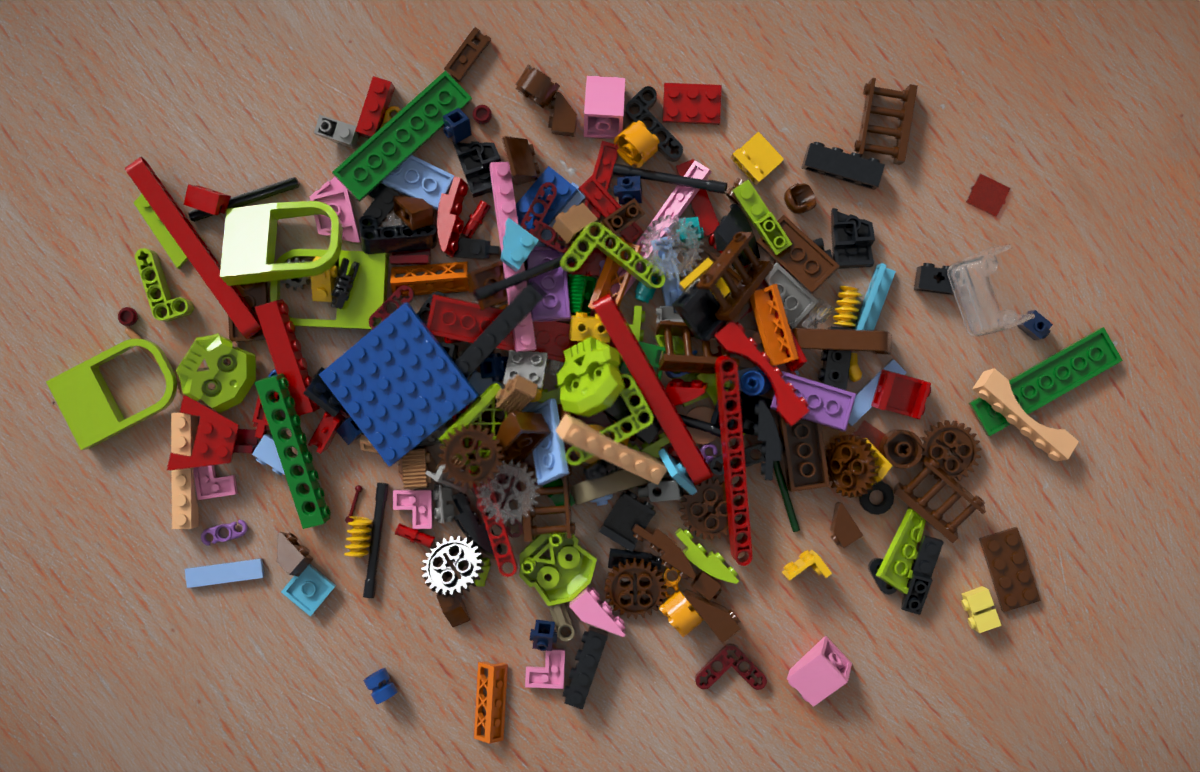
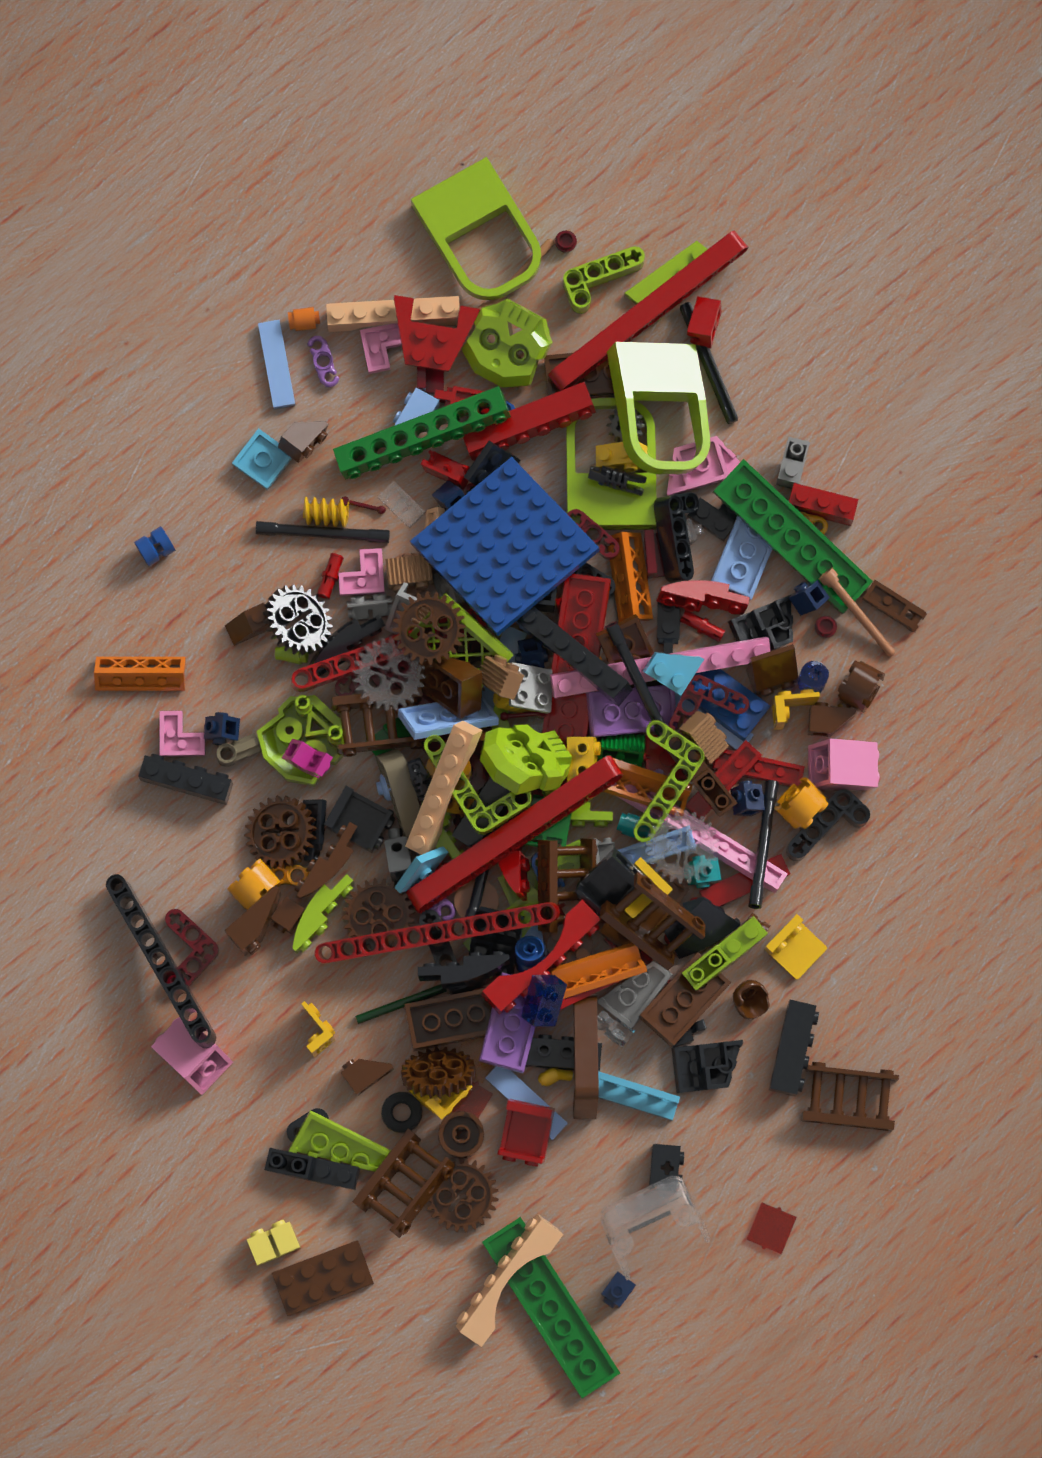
camera: 85 degrees right, 10 degrees down
(185, 548) = (303, 319): none -> orange brick
(355, 471) = (401, 504): none -> clear plate
(413, 211) = (706, 553): reddish brown slope -> none
(442, 105) = (831, 580): none -> nougat piece
(524, 119) = (817, 671): none -> clear blue piece
(547, 393) = (504, 716): none -> dark red hinge
(557, 156) = (784, 700): none -> yellow bracket
(576, 565) = (307, 758): none -> dark pink brick
(595, 612) = (255, 781): bright pink slope -> none
(692, 103) = (855, 869): red plate -> none
(747, 689) = (165, 969): none -> black beam
(800, 373) = (543, 1000): none -> clear blue brick
(847, 306) = (626, 1062): yellow piece -> none

